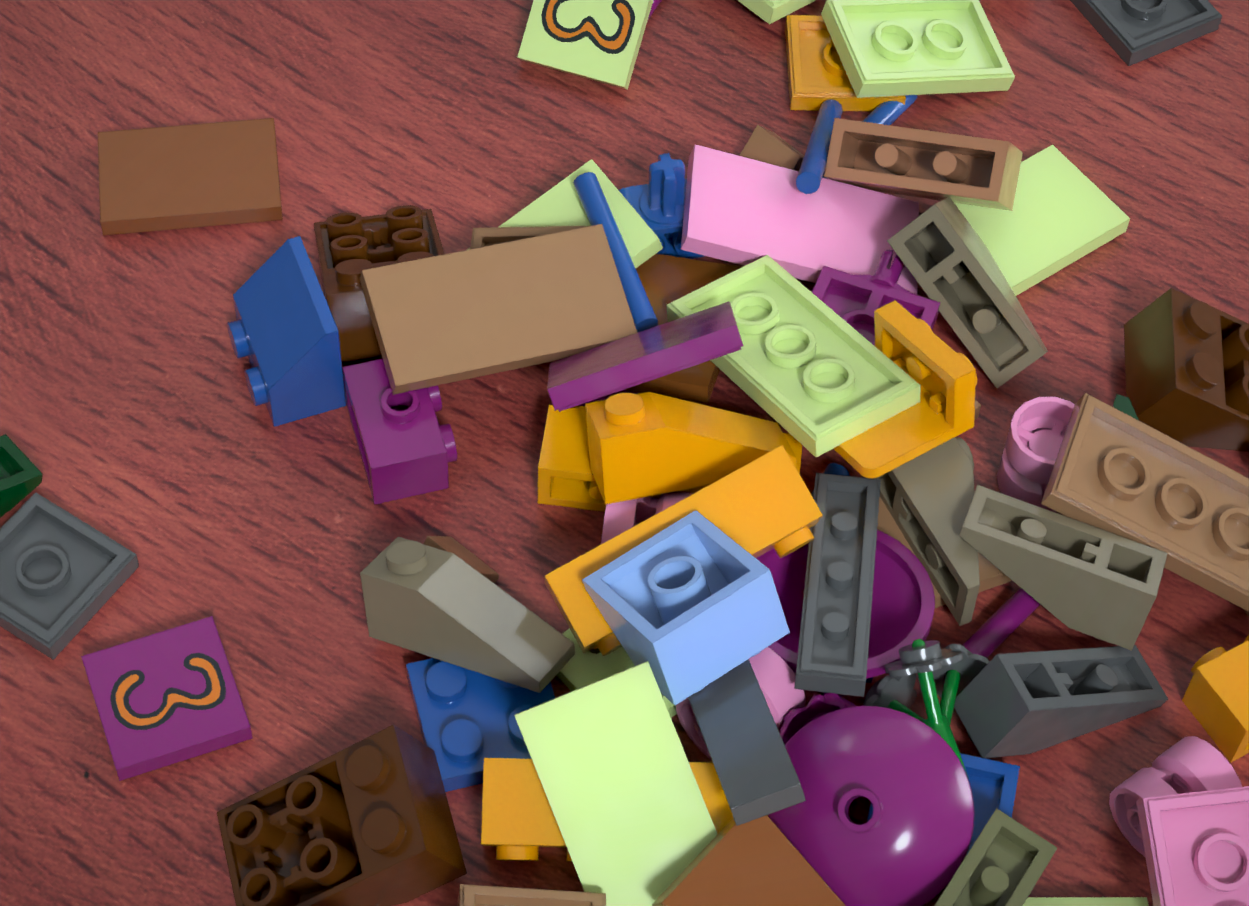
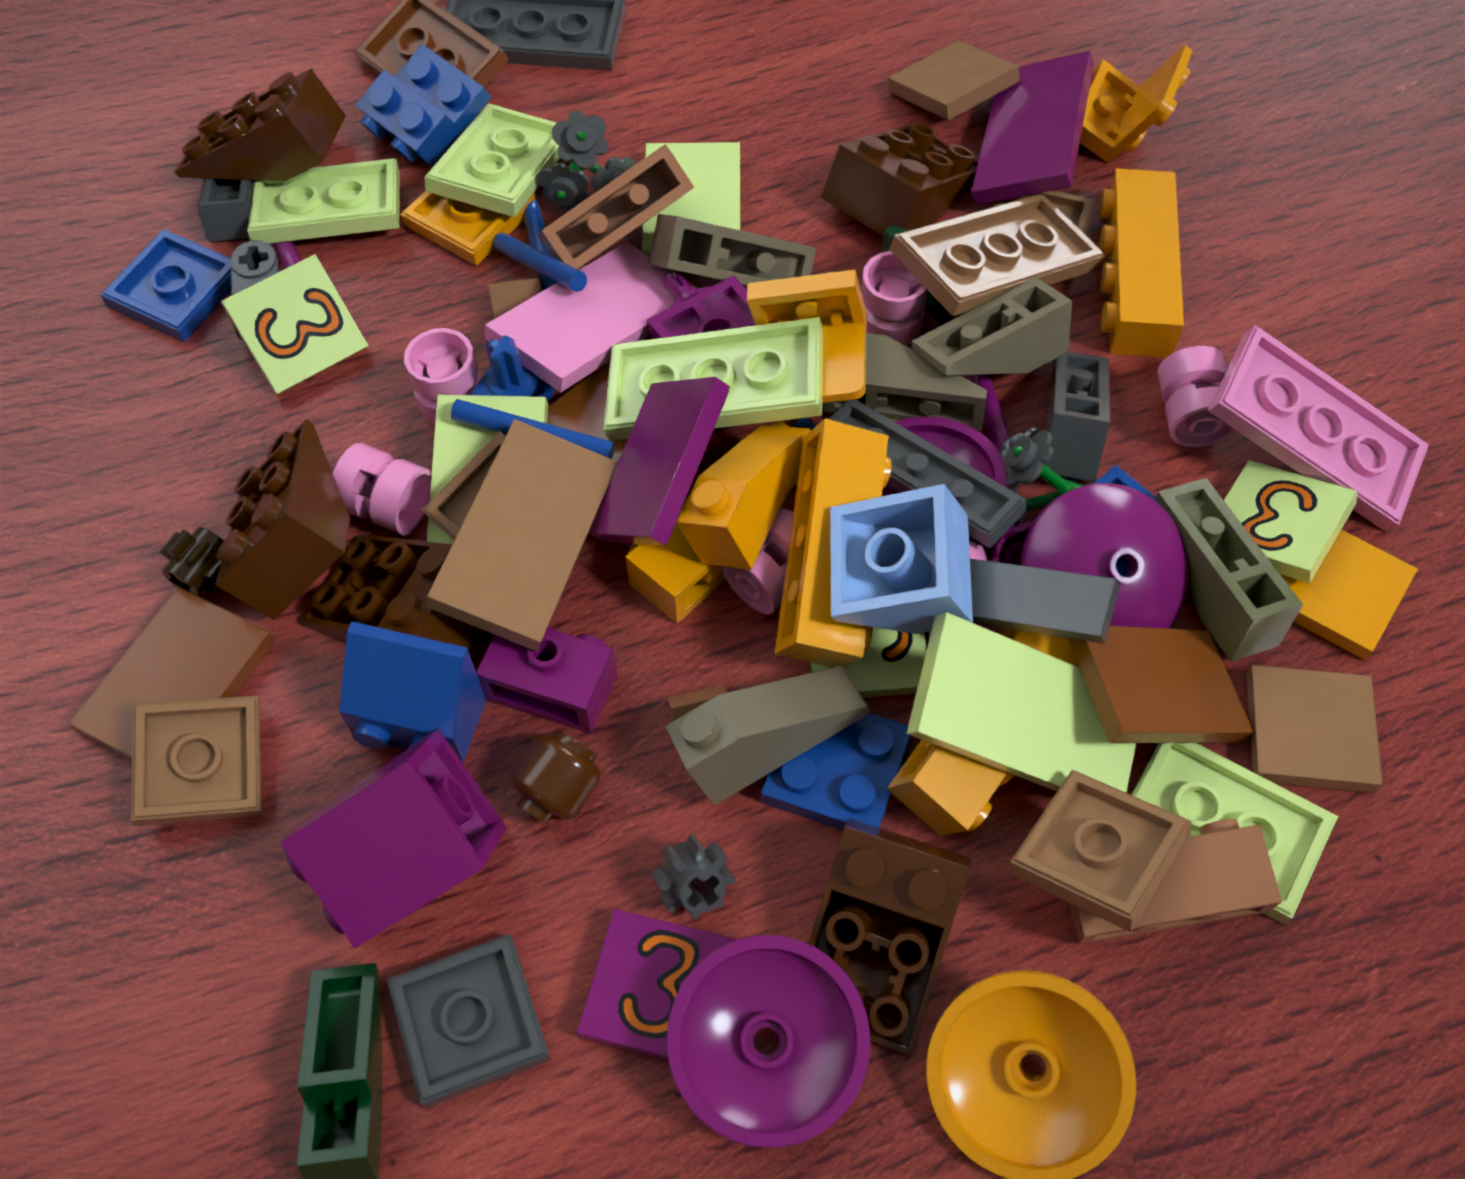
camera: 50 degrees left, 5 degrees up
(128, 236) = (196, 760): none -> medium nougat tile
(139, 763) = (819, 1033): none -> magenta dish
(153, 407) = (395, 840): none -> magenta slope
(280, 654) = (693, 877): none -> dark grey gear
(300, 494) = (555, 777): none -> reddish brown head
(302, 112) = (193, 560): none -> dark brown gear
(375, 143) = (283, 525): none -> reddish brown slope
(475, 184) = (383, 488): none -> bright pink wheel
(627, 142) = (440, 364): none -> bright pink wheel
(968, 86) = (580, 143): none -> dark grey plant

